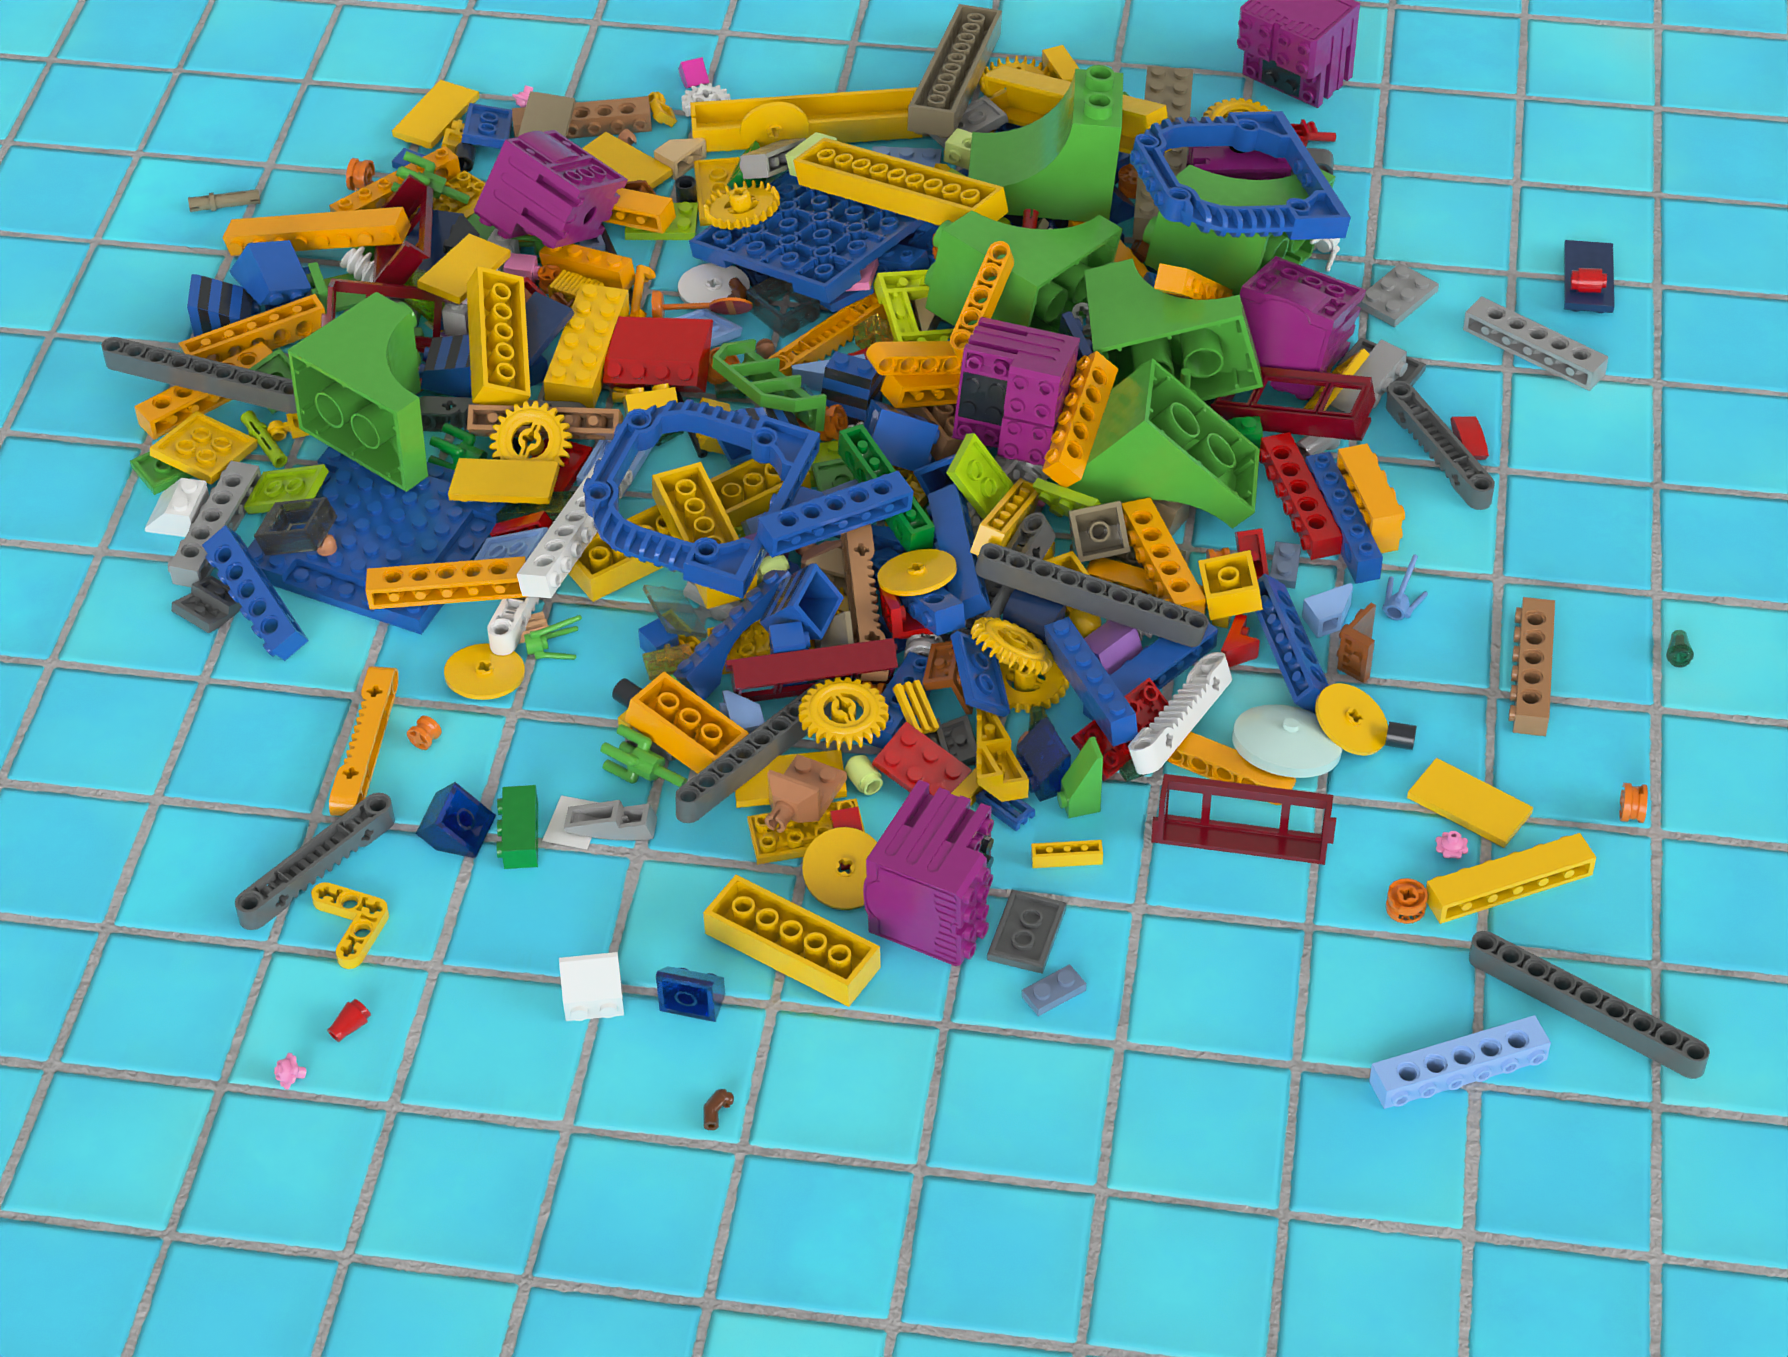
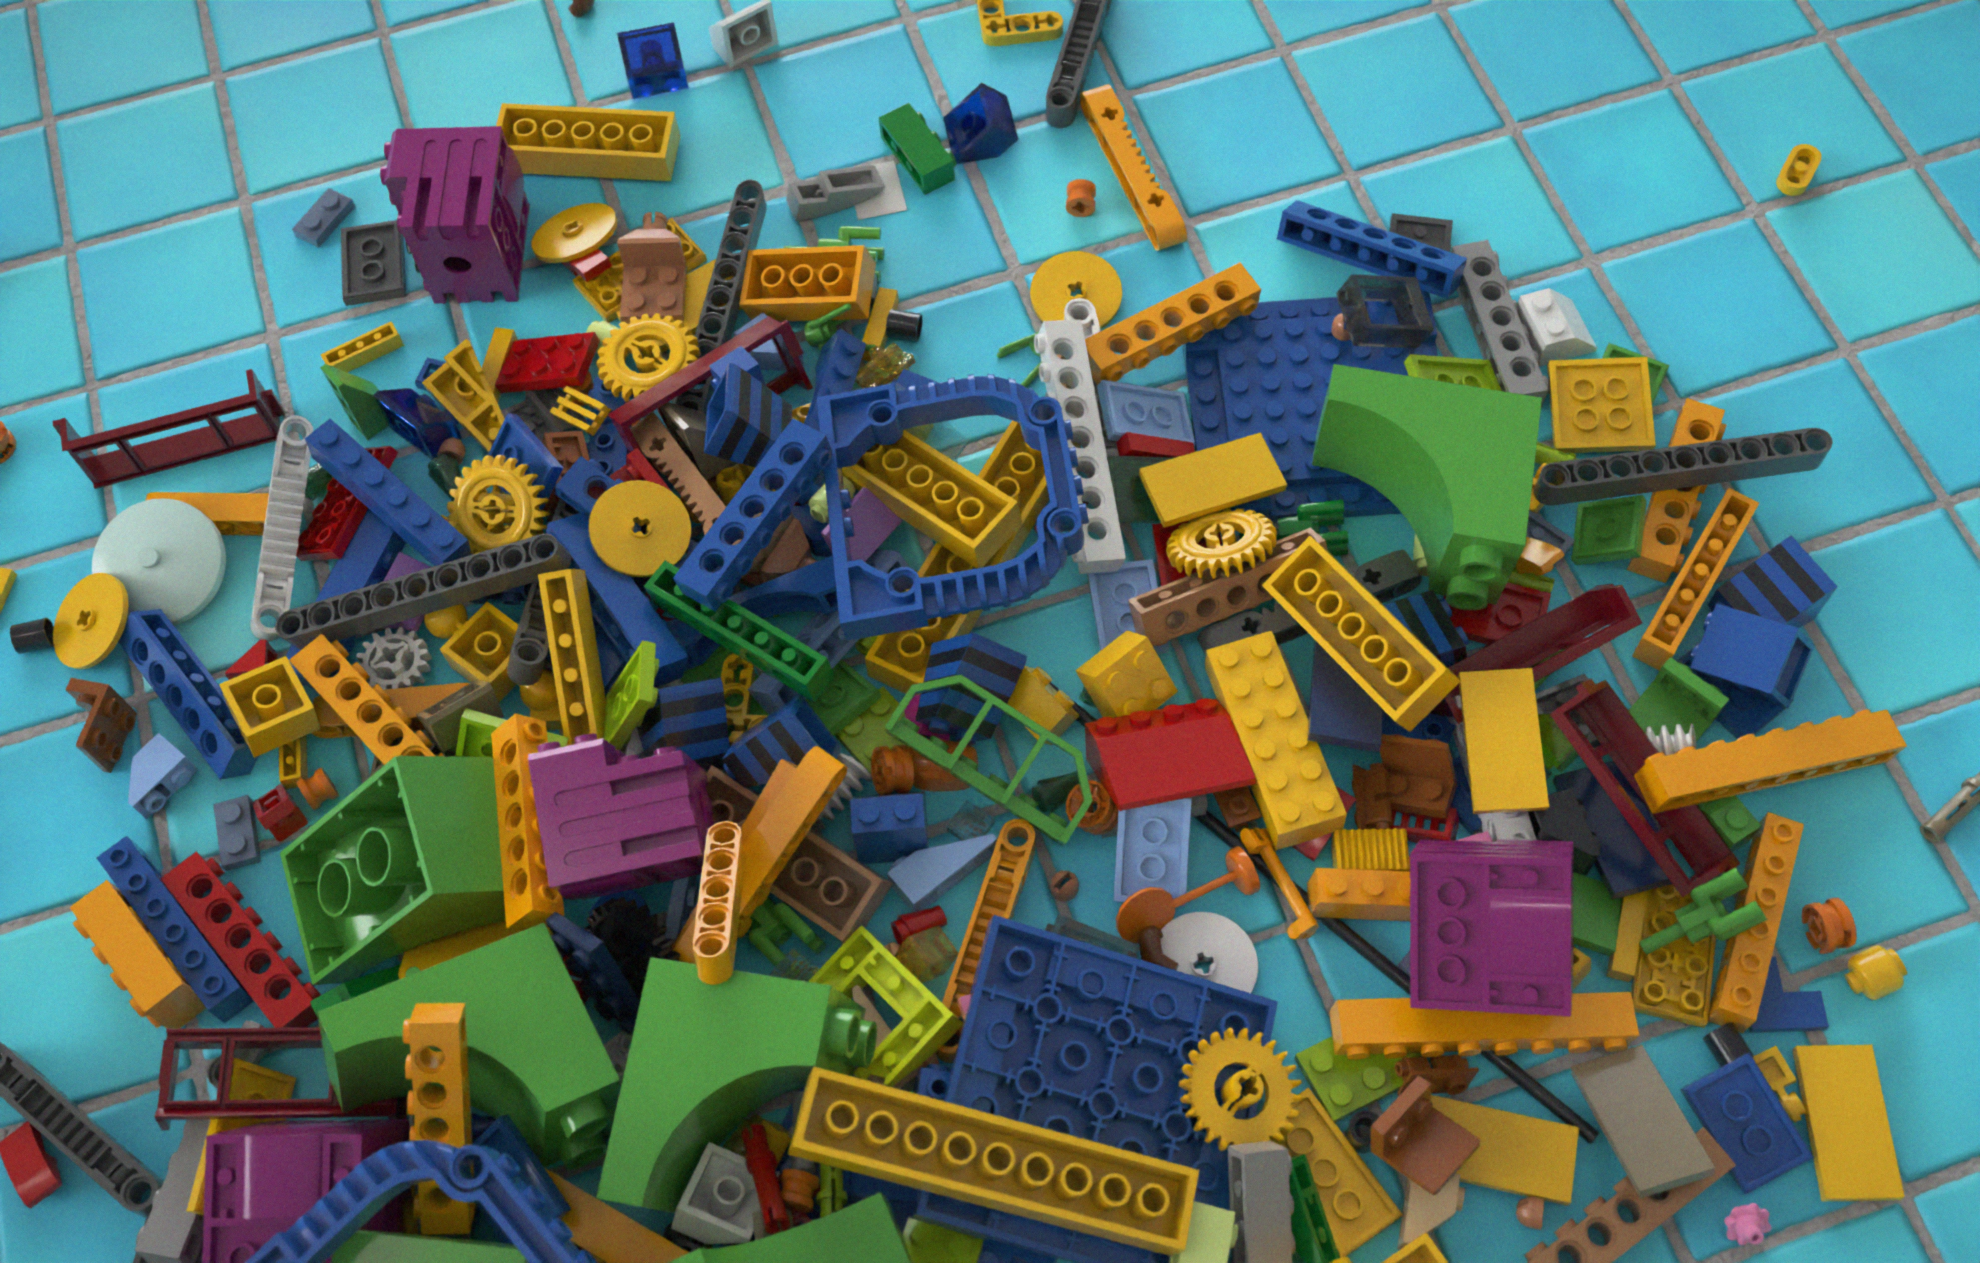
camera: 155 degrees right, 15 degrees up
(356, 149) = (1875, 972): none -> yellow head
(662, 161) = (1421, 1139): none -> dark orange bracket
(1397, 605) = (73, 824): medium blue plant -> none

